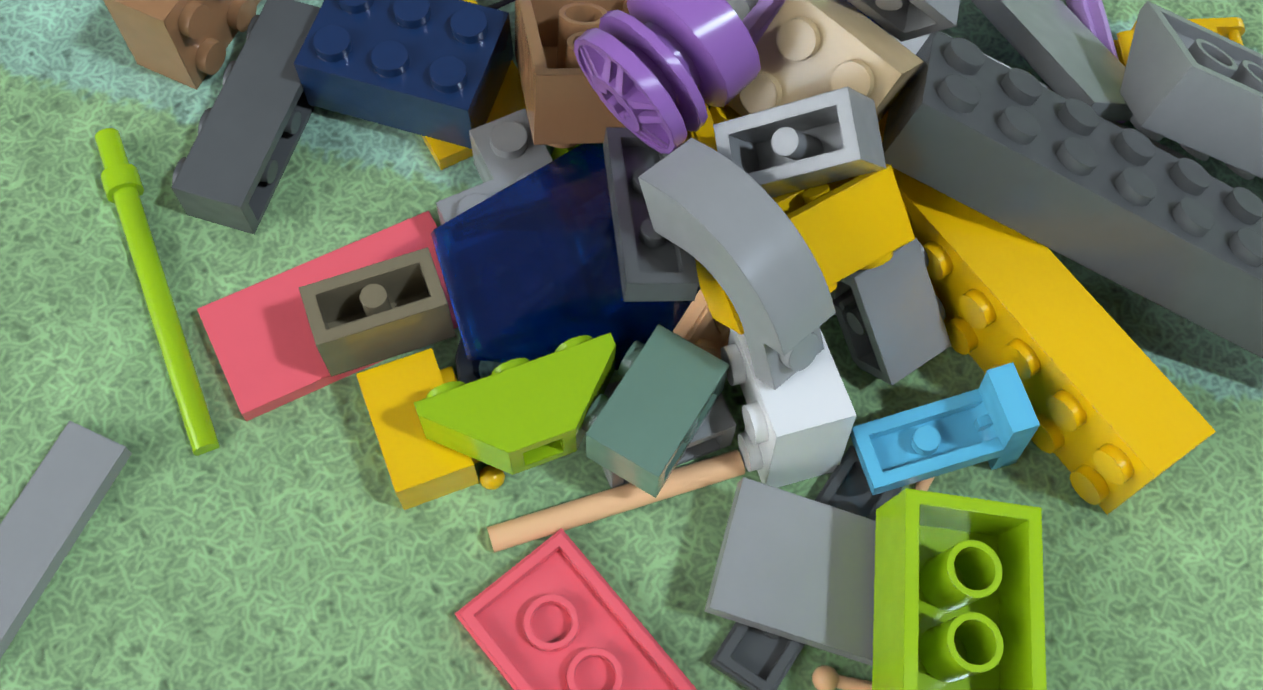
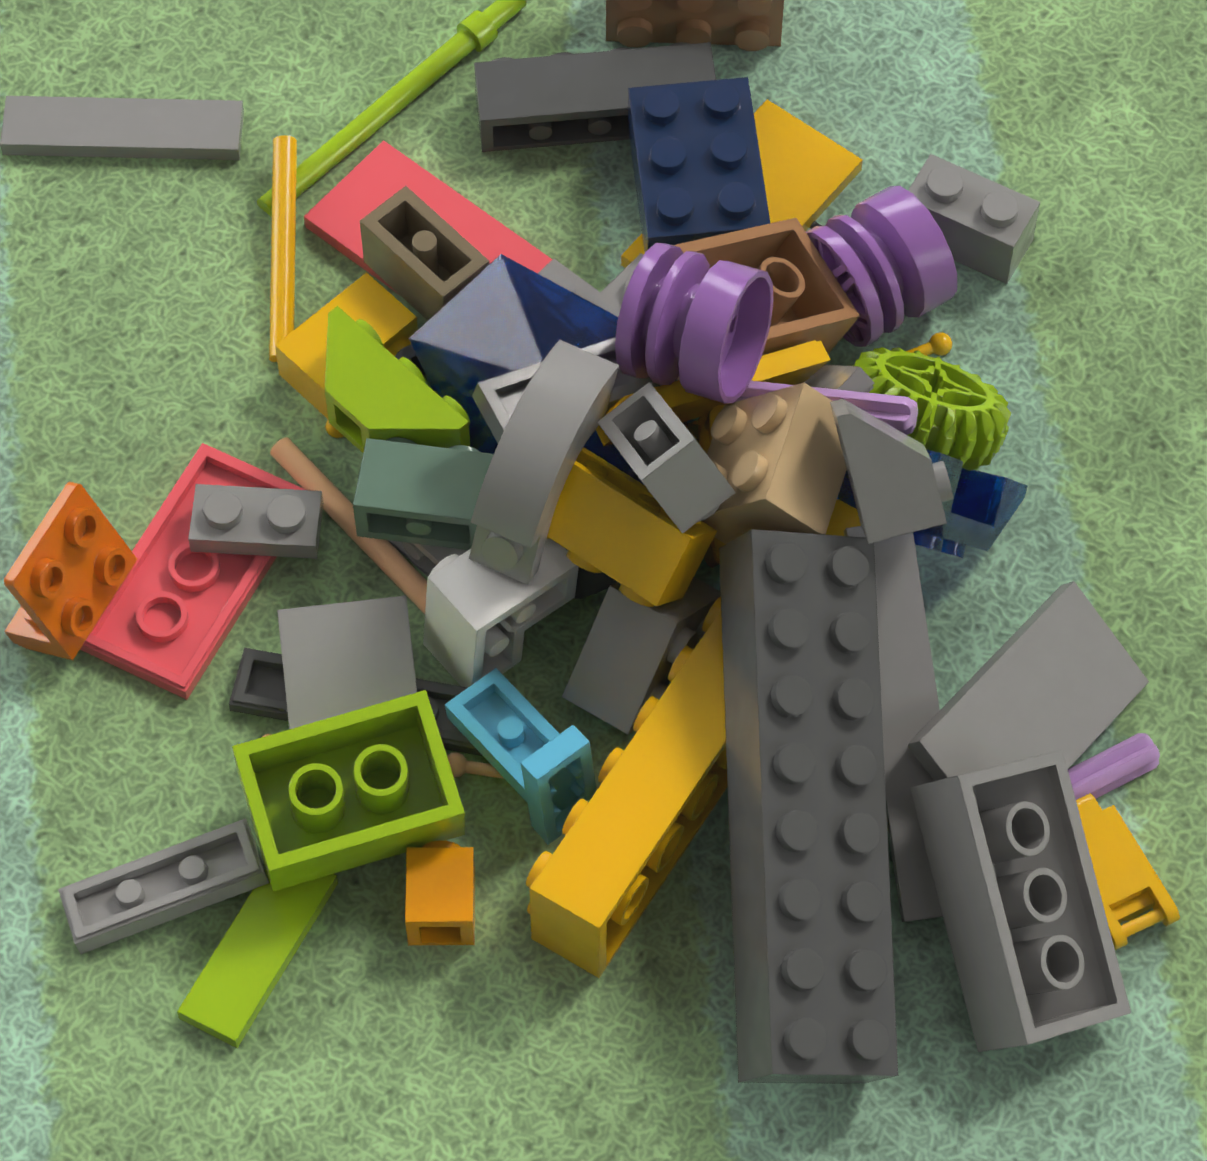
camera: 70 degrees right, 5 degrees down
(268, 447) = (283, 240): none -> yellow bar
(579, 593) = (256, 521): none -> light grey plate
(1076, 576) = (440, 894): none -> light orange brick

